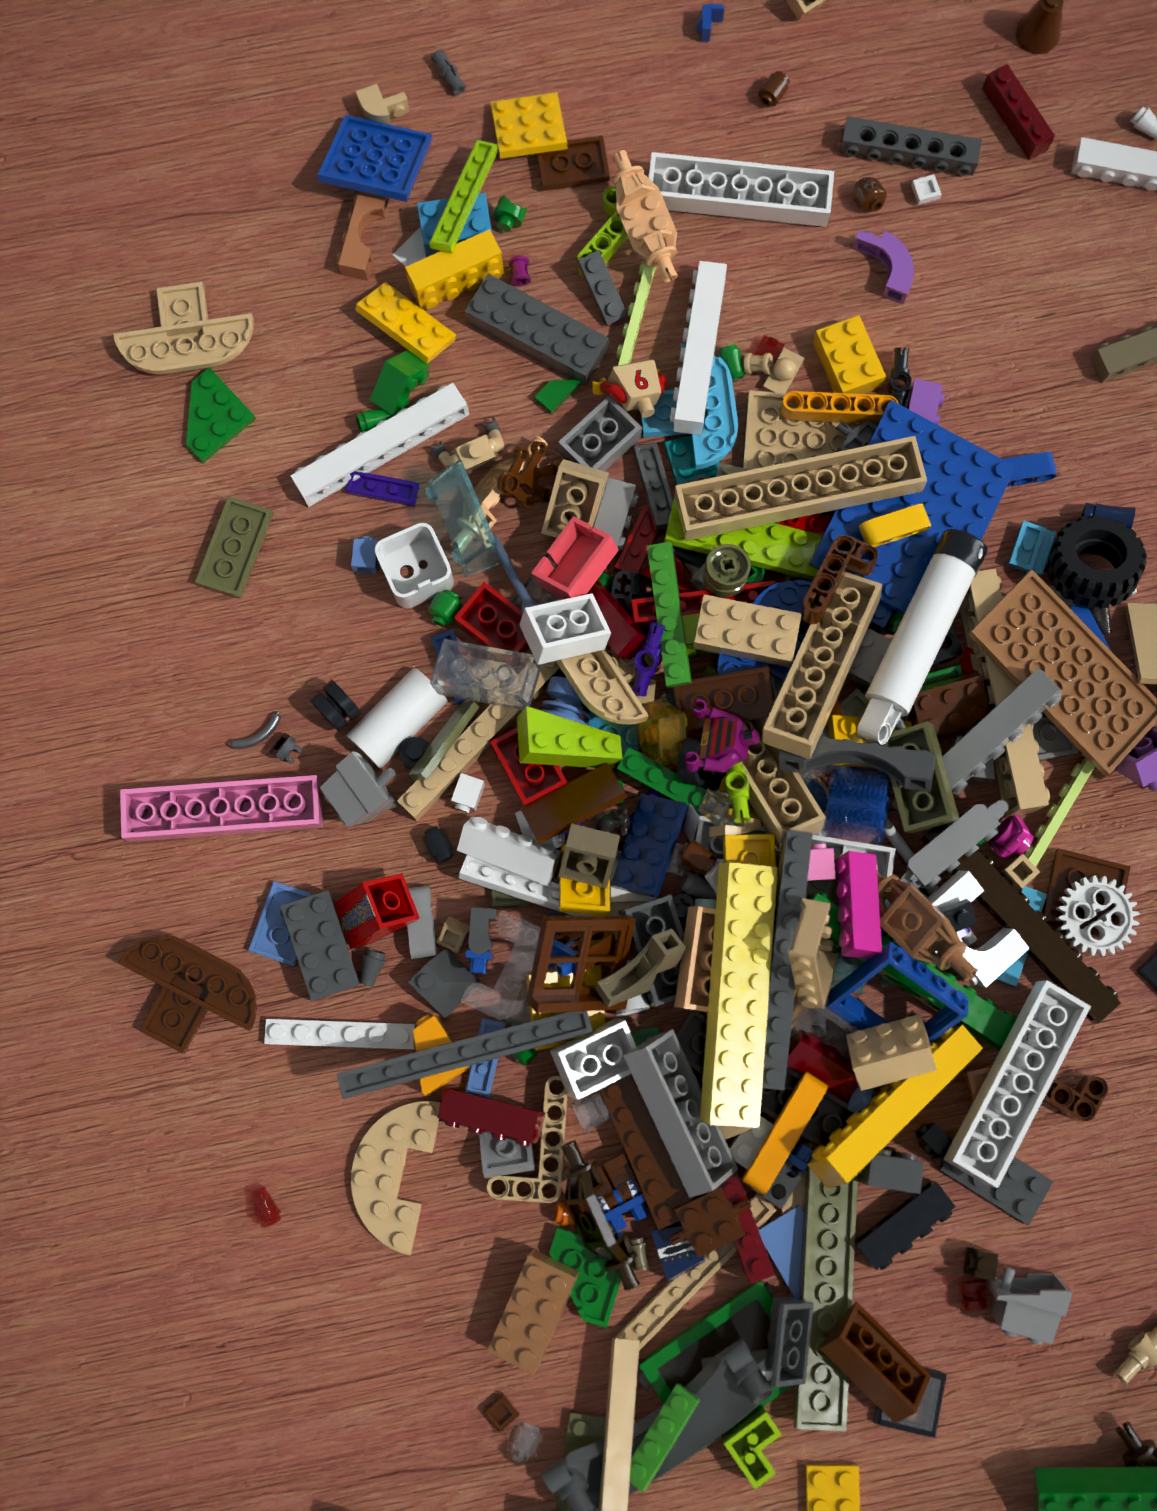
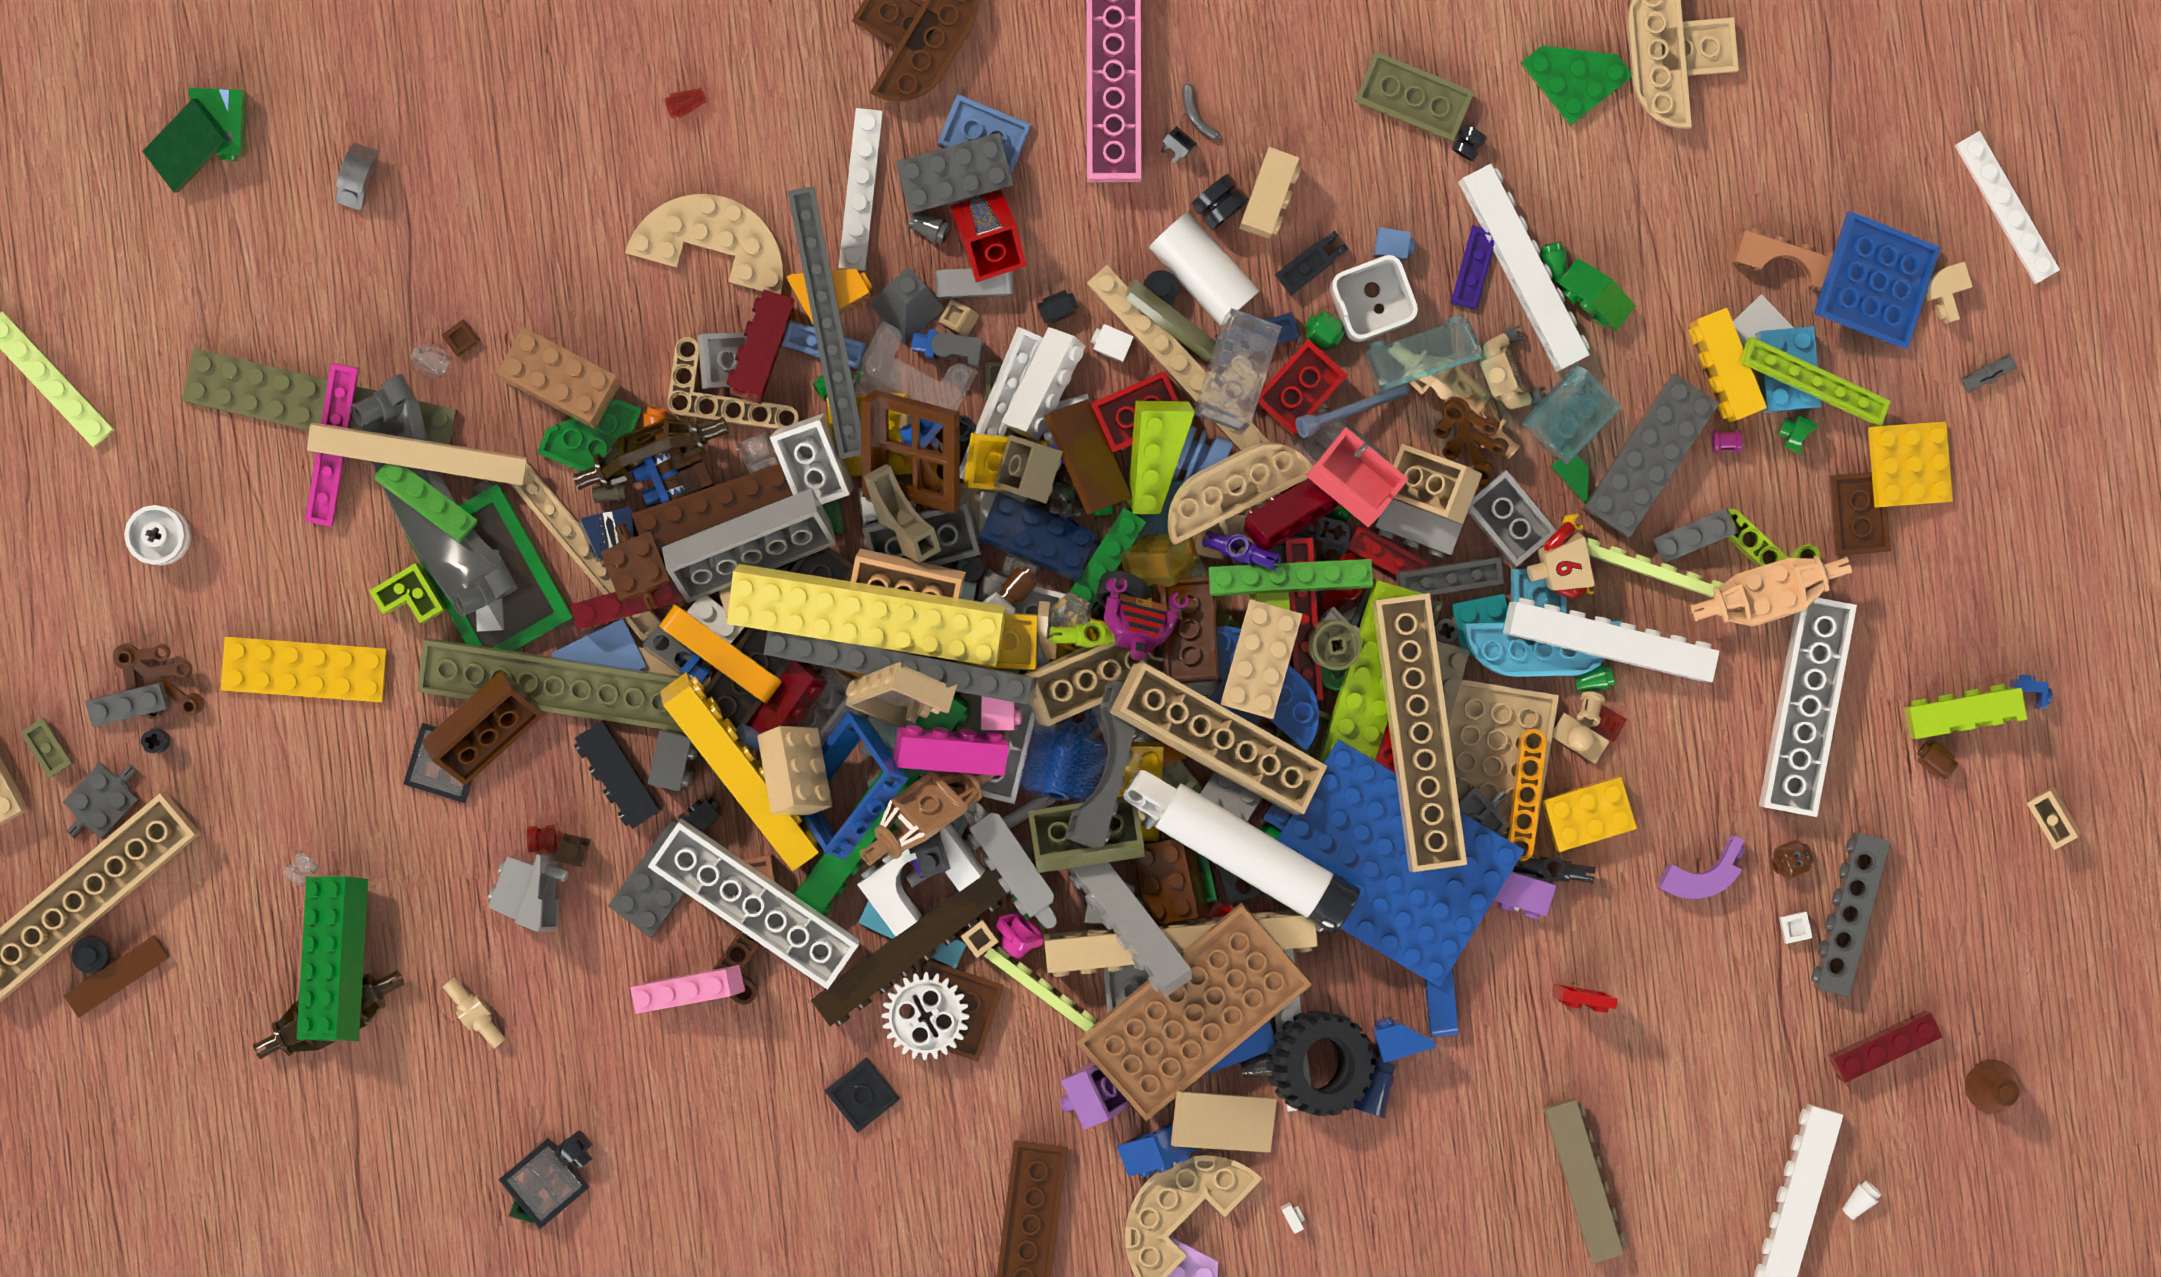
camera: 95 degrees right, 10 degrees up
(273, 497) = (1469, 143): none -> black wheel
(309, 68) = (2007, 207): none -> white plate
(325, 661) = (1270, 193): none -> tan brick
(358, 791) = (1120, 224): light grey piece -> none
(388, 627) = (1308, 265): none -> black hinge
(405, 322) = (1670, 305): yellow plate -> none
(505, 393) = (1571, 414): none -> clear light blue brick
(564, 628) = (1277, 459): white brick -> none
(691, 823) = (1059, 584): white sticker -> none
(732, 66) = (1965, 712): none -> lime wedge
(788, 1341) = (510, 639): dark grey slope -> none
(830, 580) = (1309, 758): reddish brown beam -> none
(895, 525) = (1371, 836): yellow beam -> none
(1011, 344) = (1575, 997): none -> red plate
(1031, 548) = (1347, 998): medium azure plate -> none
(1066, 499) = (1398, 1039): none -> blue slope
(1102, 1141) = (687, 989): none -> bright pink brick

